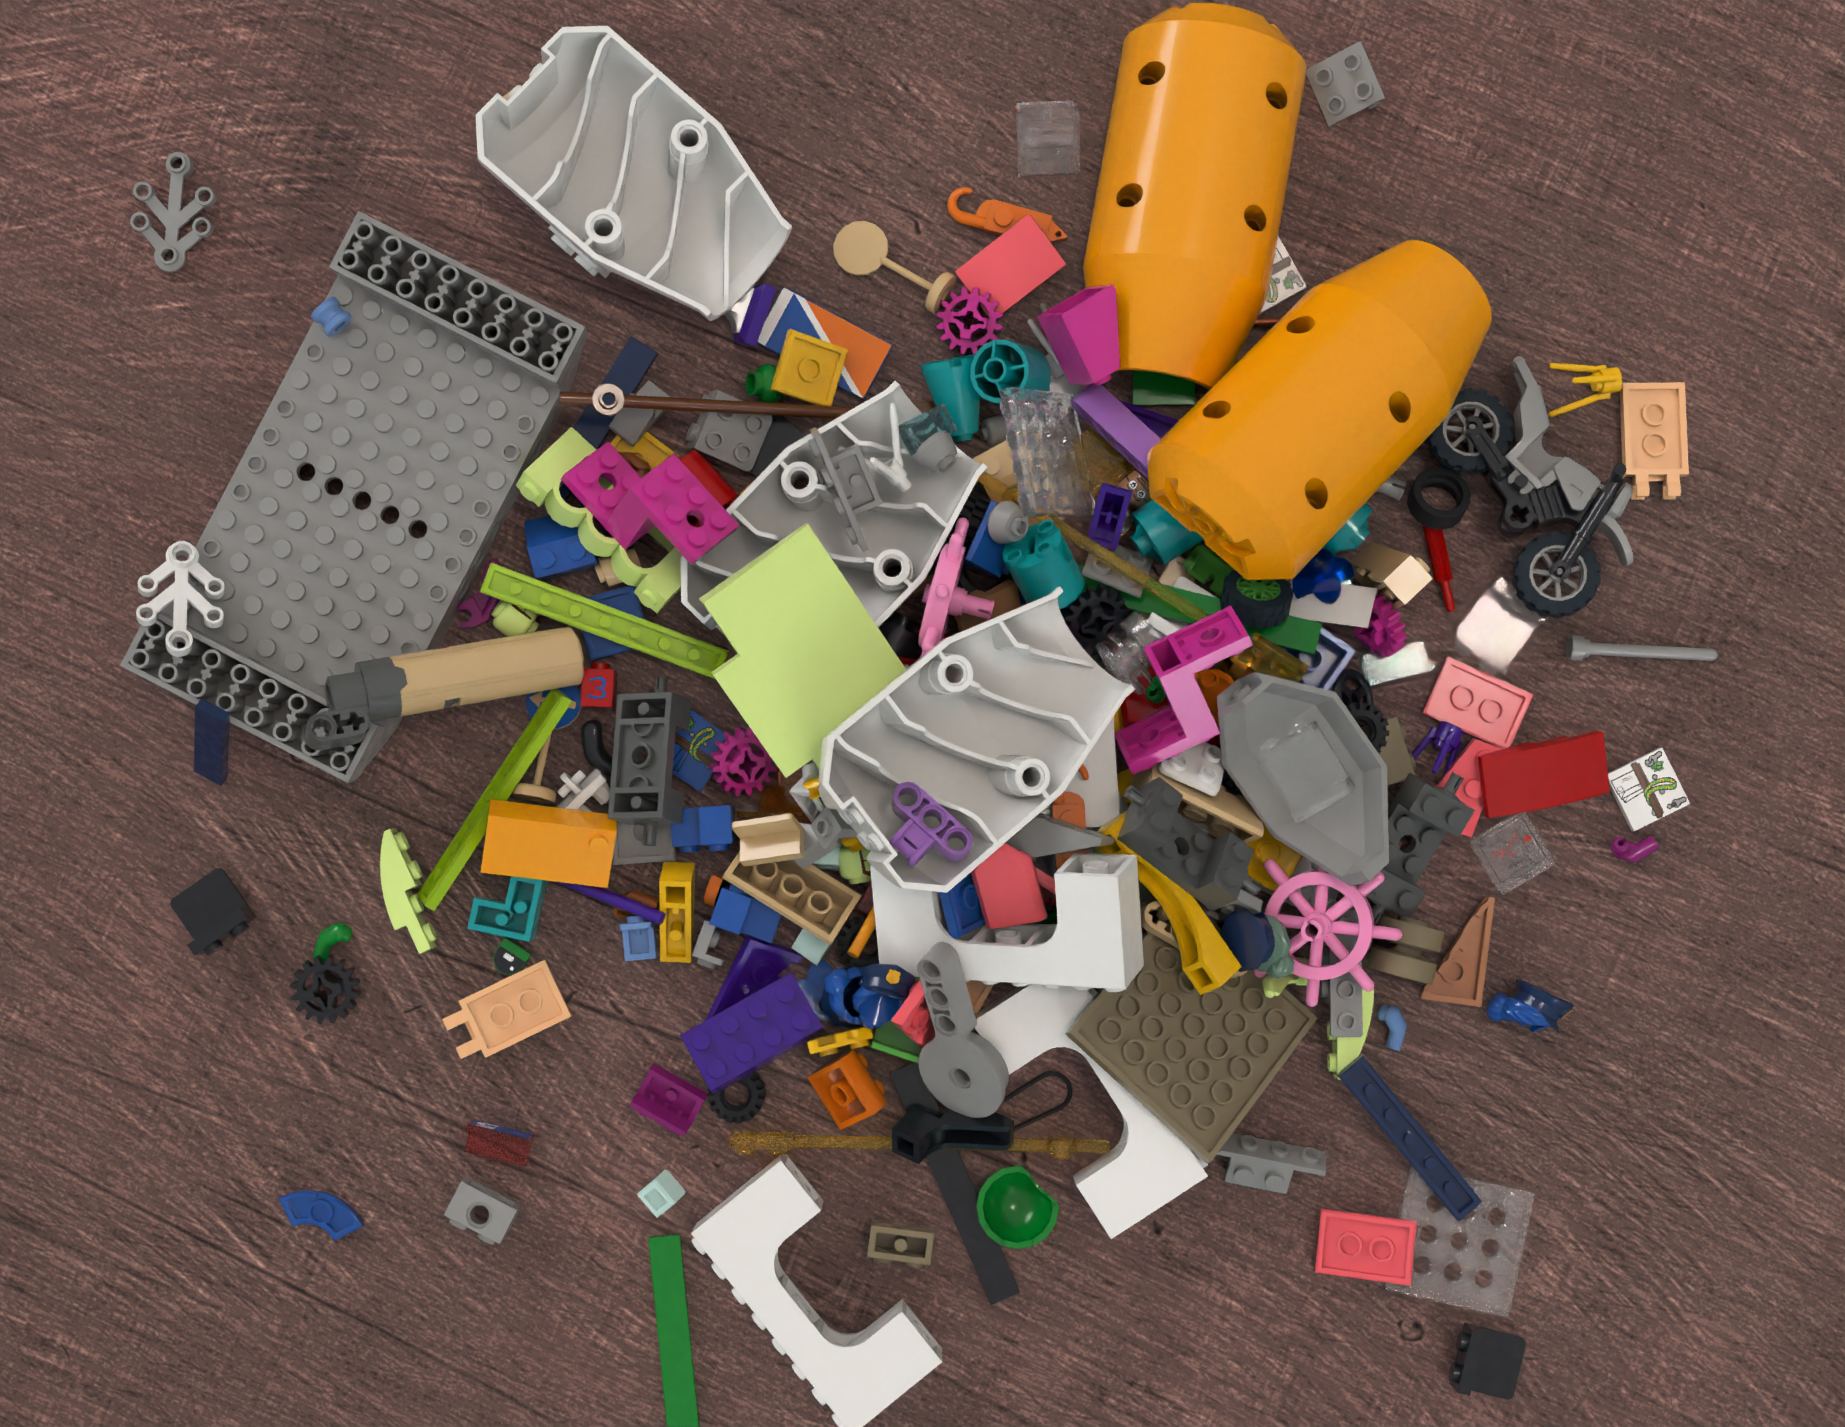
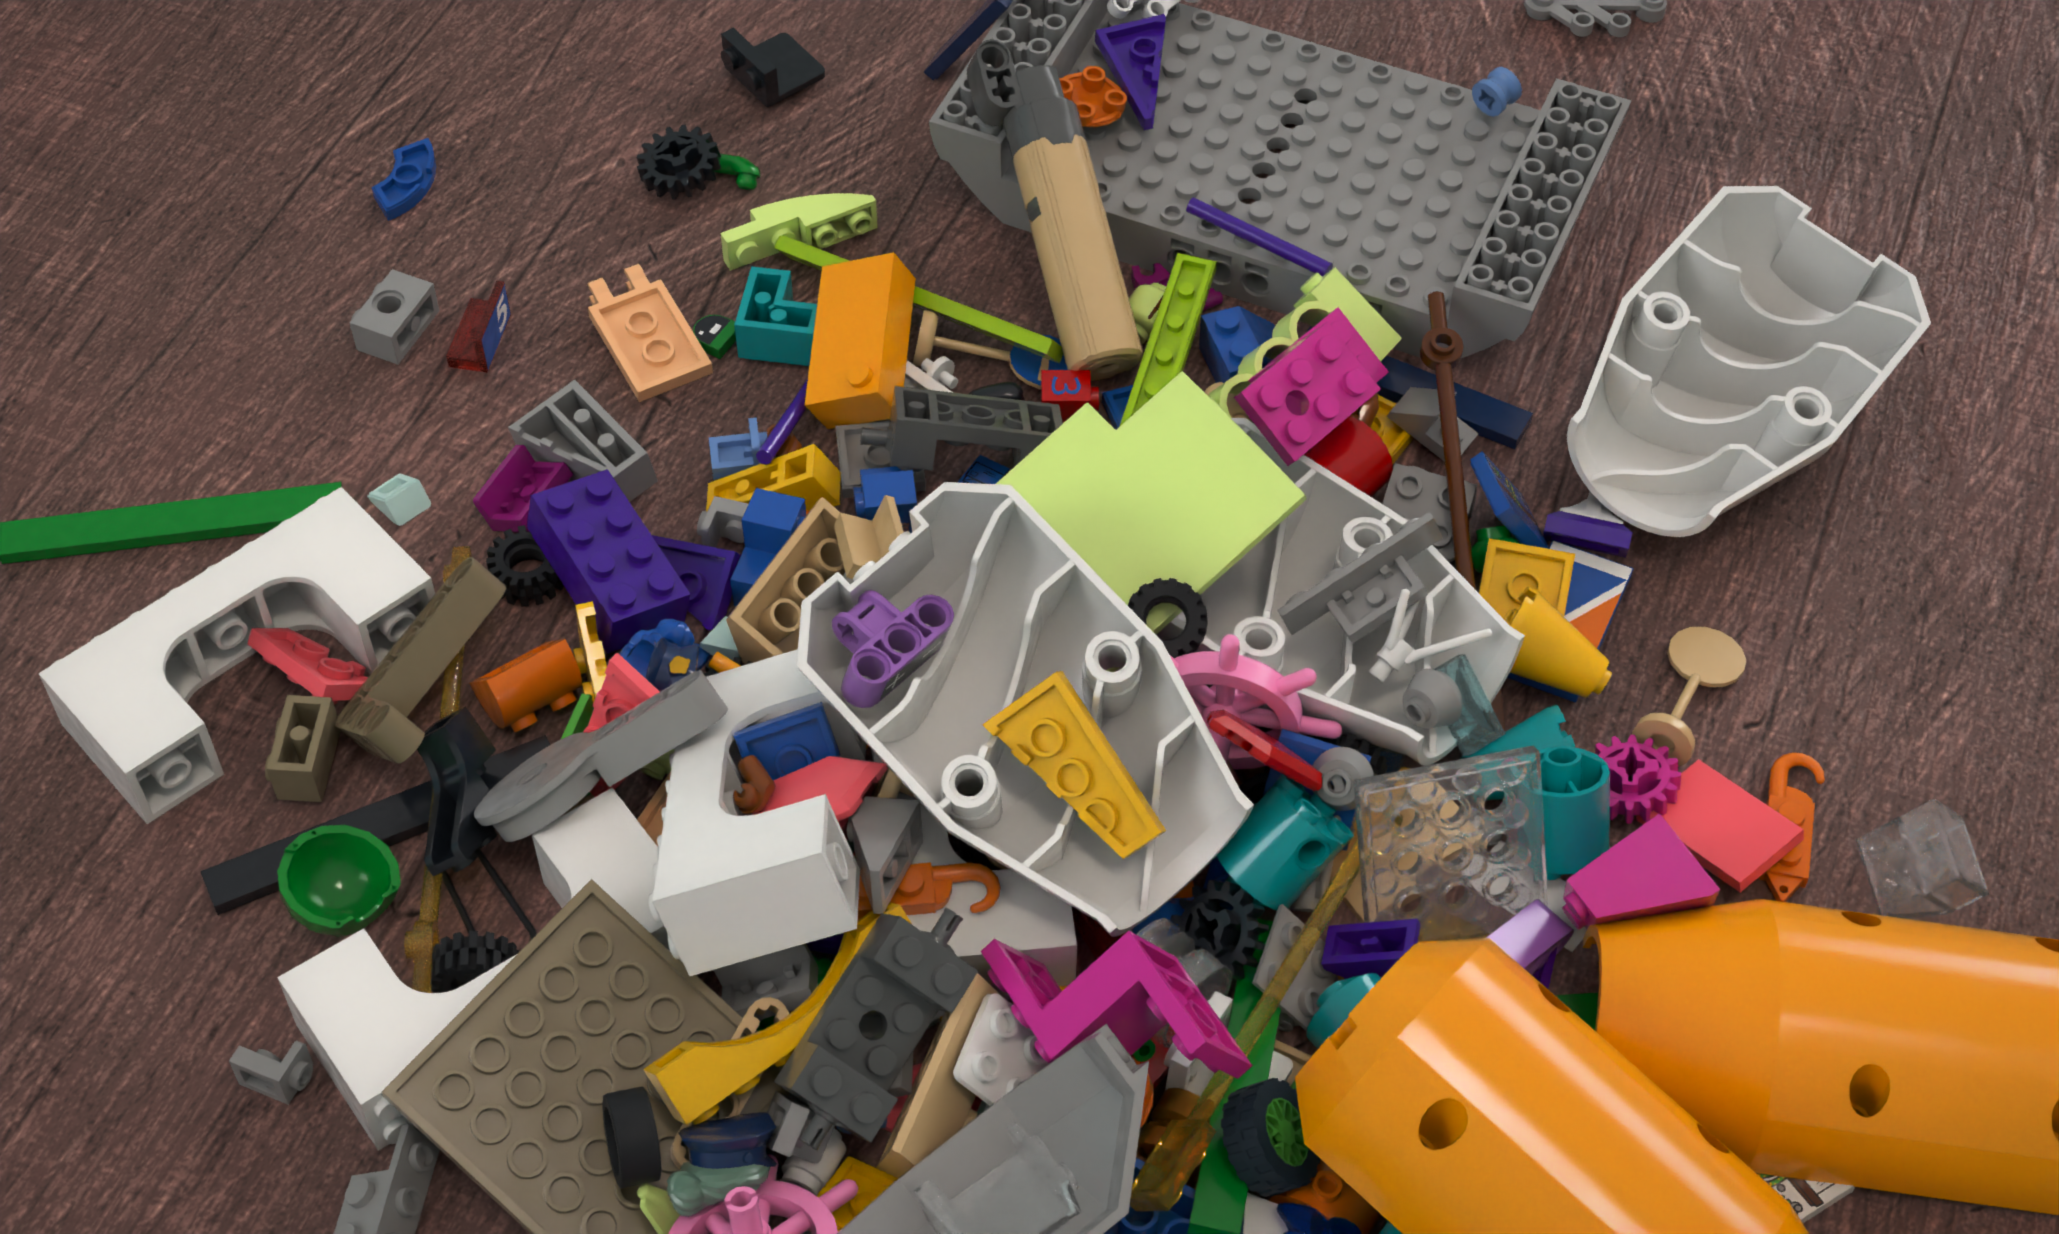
camera: 85 degrees right, 35 degrees down
(267, 609) = (1134, 59): none -> dark purple wing
(315, 651) = (1096, 96): none -> orange dish
(475, 526) = (1258, 237): none -> dark purple bar
(630, 1052) = (584, 436): none -> light grey wedge
(734, 369) = (1507, 502): none -> blue tile
(830, 1238) = (308, 663): none -> coral wing
(844, 1173) = (380, 707): none -> dark tan beam
(868, 363) = (1555, 649): none -> yellow cone
(906, 632) = (1186, 599): none -> black tyre
(998, 920) = (757, 788): none -> dark orange arm
(1000, 576) = (1265, 748): none -> red tile
(1010, 702) = (1070, 753): none -> yellow wing
(1088, 1111) = (466, 958): none -> black tyre
(1150, 1244) = (271, 1076): none -> light grey bracket
(1243, 1001) = (631, 1137): none -> black tyre

